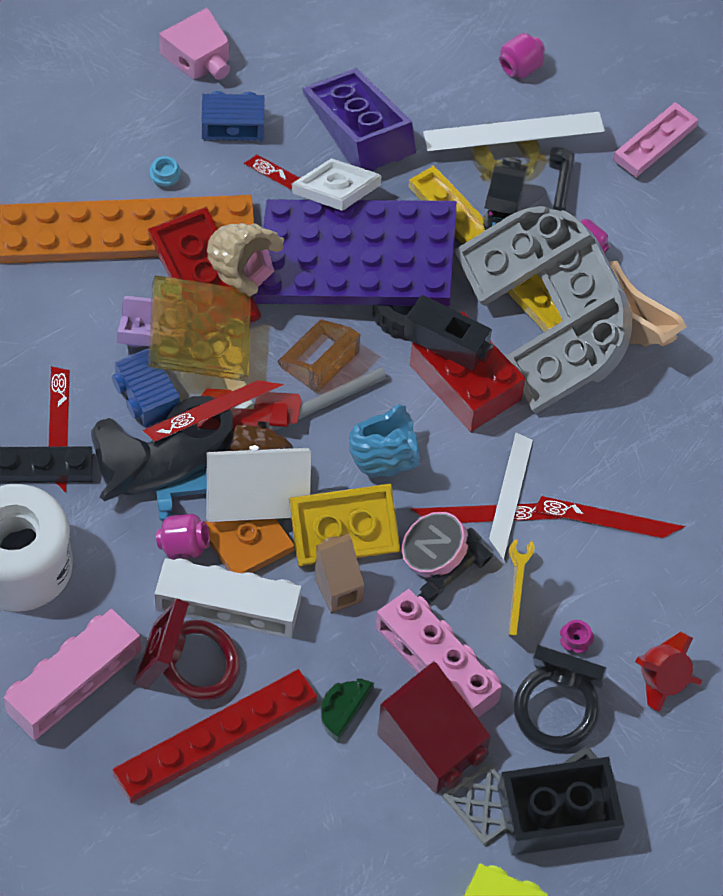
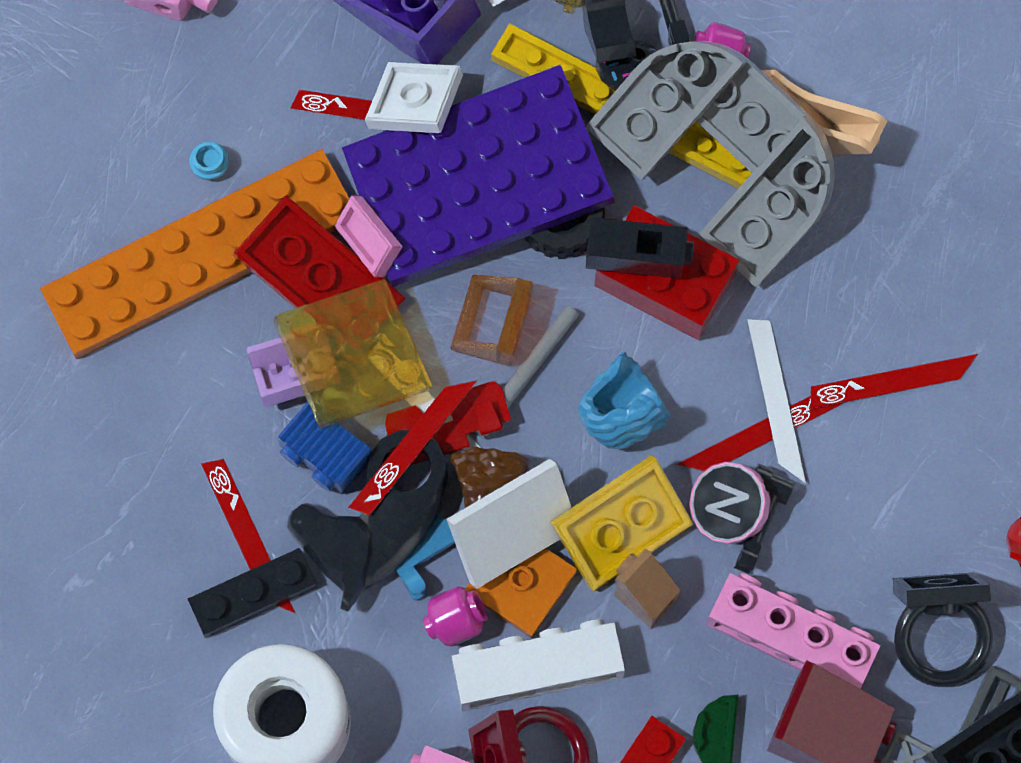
camera: 20 degrees left, 15 degrees up
(232, 248) = (344, 247): tan hair -> none
(233, 116) = (252, 55): blue brick -> none
(519, 561) = (838, 505): yellow flag -> none
(580, 629) = (932, 535): dark pink plate -> none

